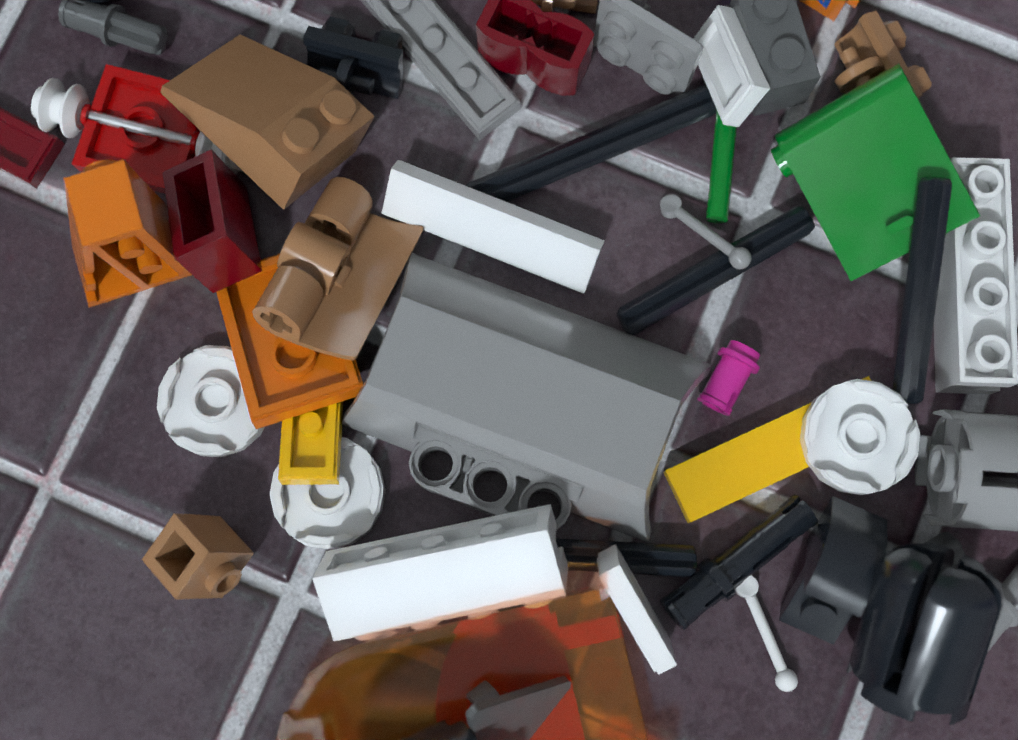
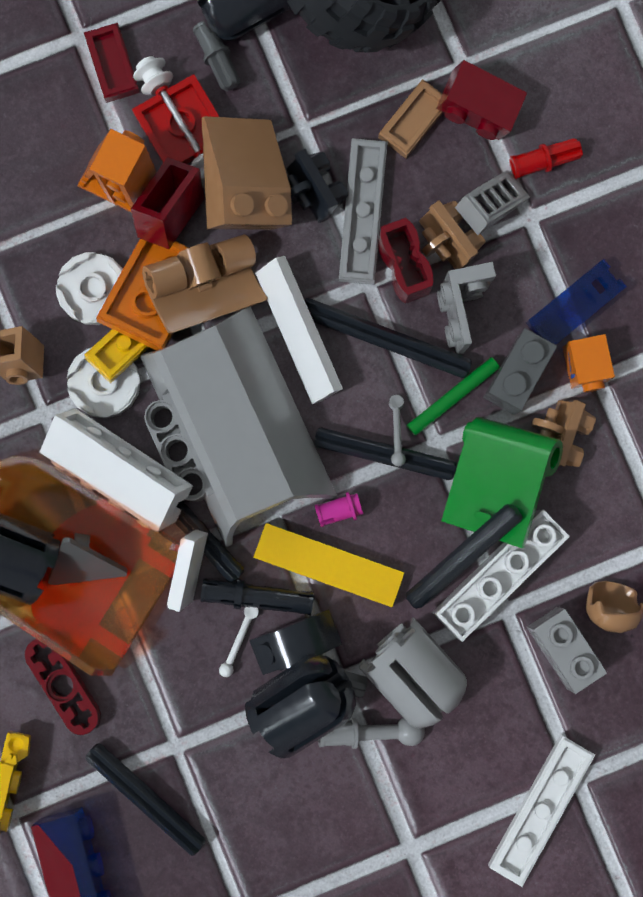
camera: 40 degrees right, 5 degrees up
(730, 67) = (487, 362): white tile -> none
(859, 437) = (369, 595): white tile -> none

